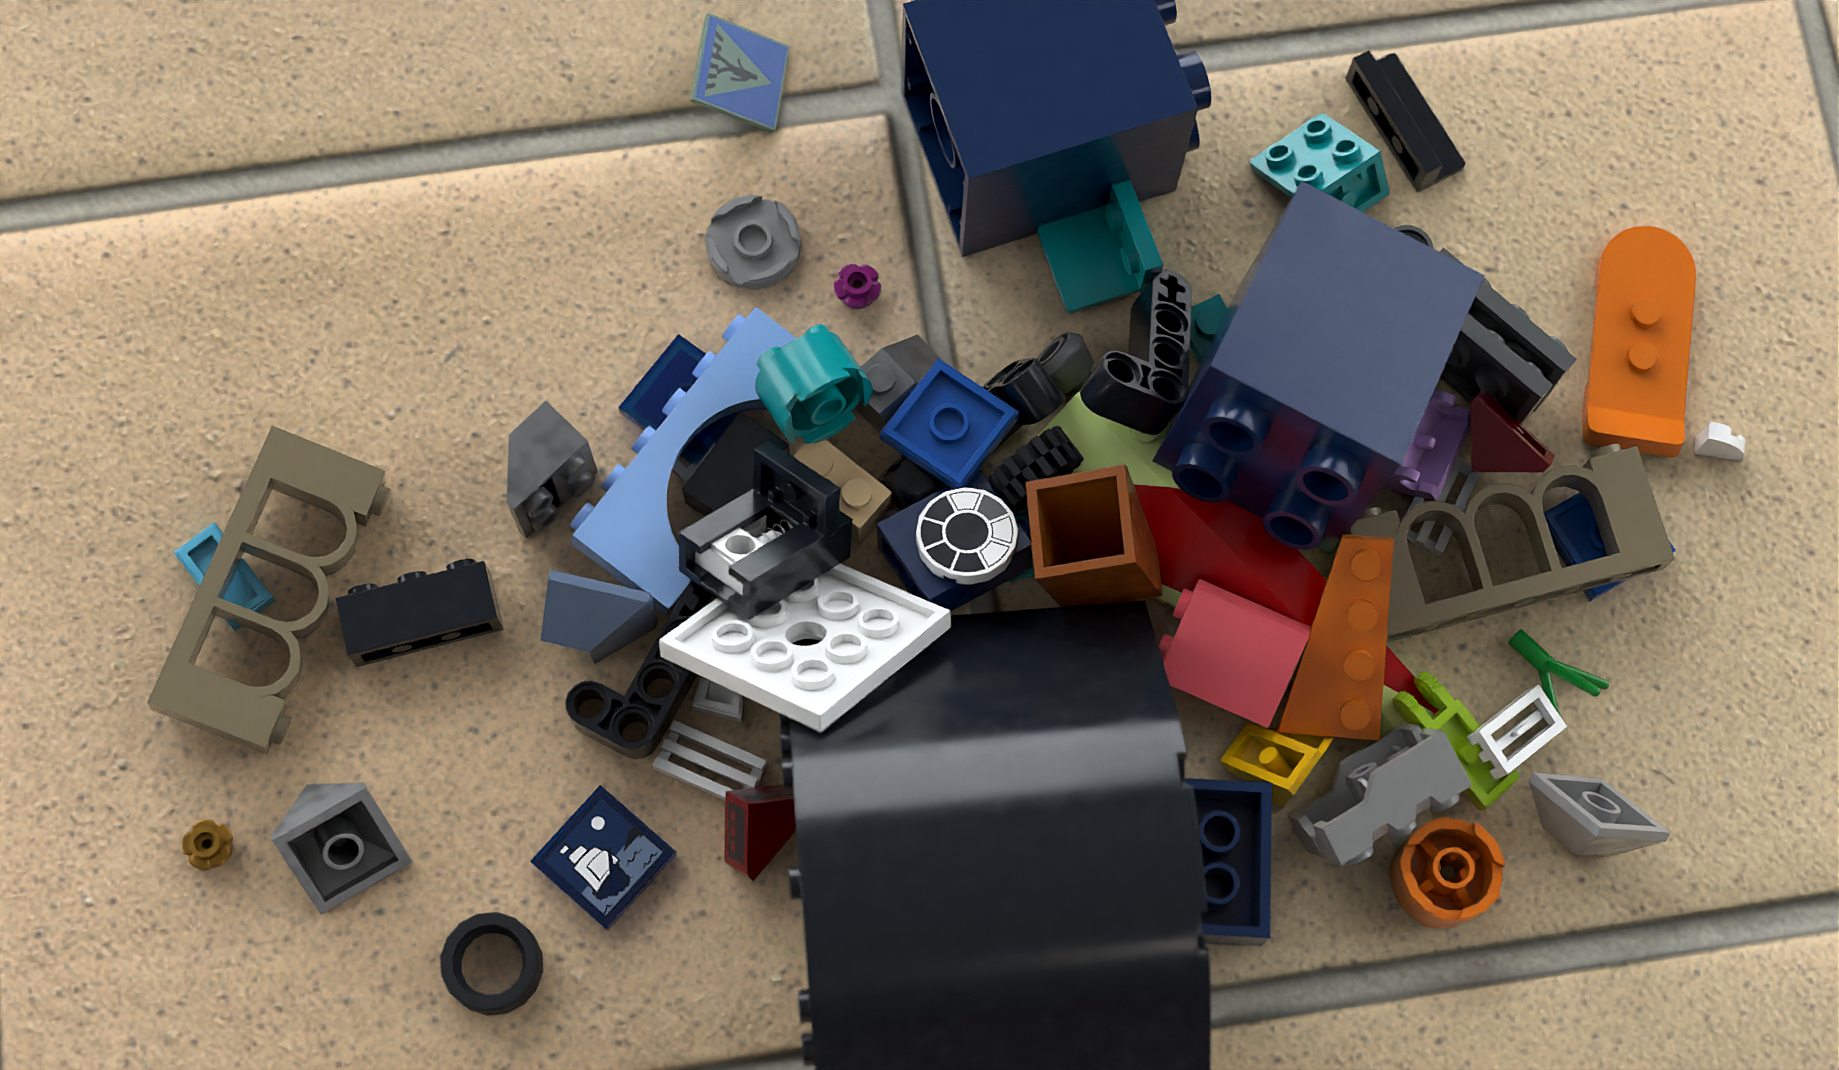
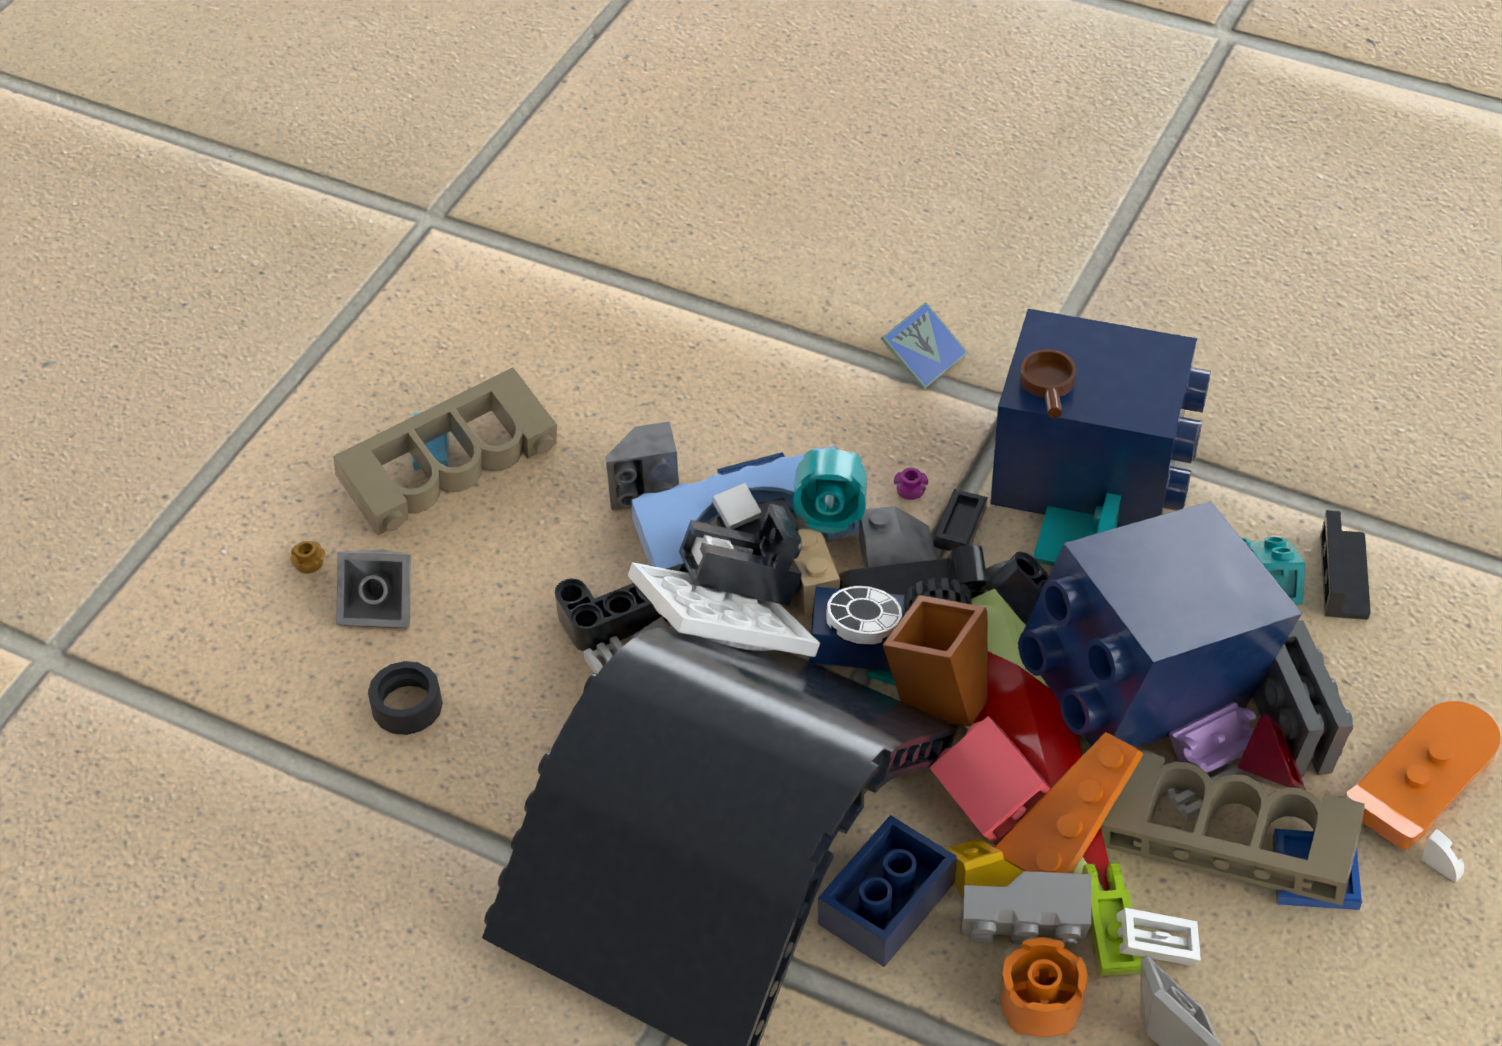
camera: 40 degrees right, 25 degrees down
(419, 612) = (518, 506): black brick -> none
(595, 615) = (610, 547): sand blue slope -> none
(603, 857) = (515, 684): tile -> none
(704, 466) = (736, 506): none -> white tile
(753, 242) = (867, 432): light grey tile -> none
(949, 306) = (960, 520): none -> black tile
(949, 425) = (901, 559): blue tile -> none
(1006, 105) = (1048, 376): none -> reddish brown piece
(1545, 663) = (1213, 918): green plant -> none

